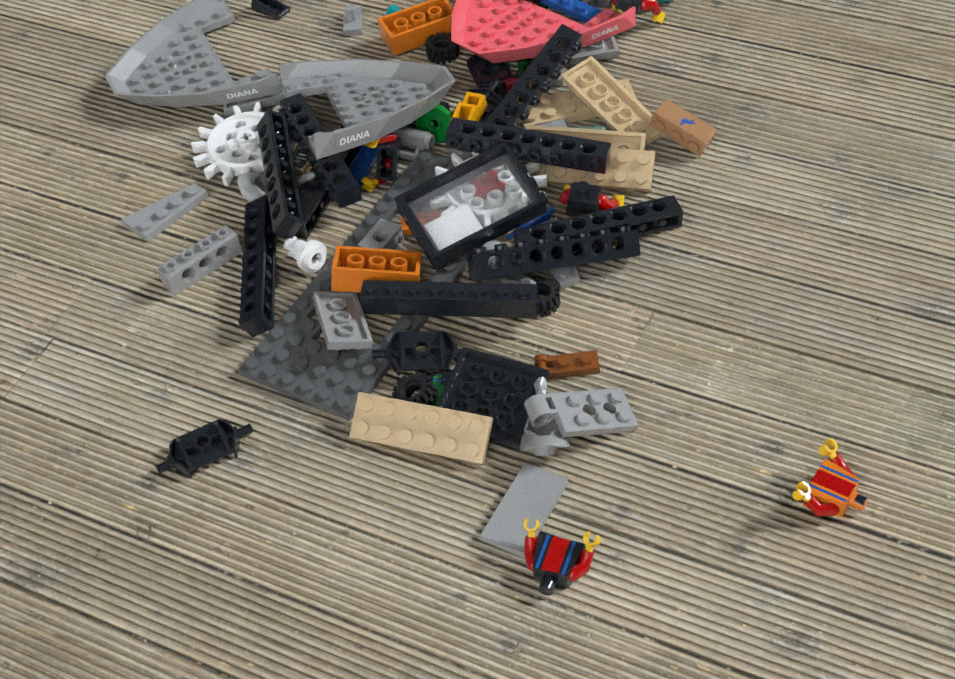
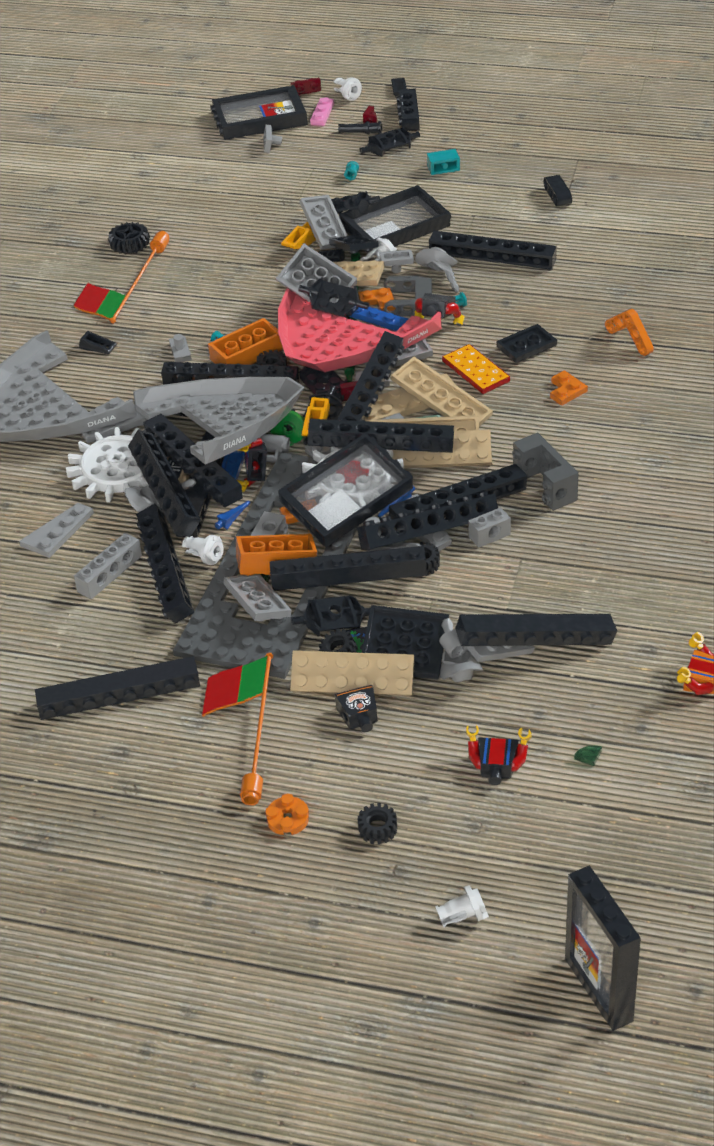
camera: 15 degrees left, 5 degrees down
(165, 406) = (117, 687): none -> black brick
(188, 456) = (151, 724): black plate -> none
(286, 426) = (234, 688): none -> flag
(300, 580) = (284, 805): none -> orange plate
(341, 47) = (183, 372): none -> black brick
(343, 220) = (227, 518): none -> blue piece
(401, 634) = (377, 813): none -> black tyre
(417, 471) = (358, 707): none -> black torso
(529, 496) = (457, 712): light grey tile -> none
(569, 364) = (471, 605): dark orange plate -> none
(587, 198) = (441, 474): black torso -> none
(625, 268) = (489, 527): none -> light grey brick
(640, 406) = (535, 629): none -> black brick
(662, 76) = (476, 369): none -> light orange tile
(667, 573) = (588, 754): none -> clear green tile
(683, 127) = (507, 408): medium nougat brick -> none
(718, 222) = (560, 479): none -> dark grey plate
(727, 52) = (526, 343): none -> black plate
(761, 110) = (568, 388): none -> orange plate
(849, 39) = (632, 322): none -> orange beam

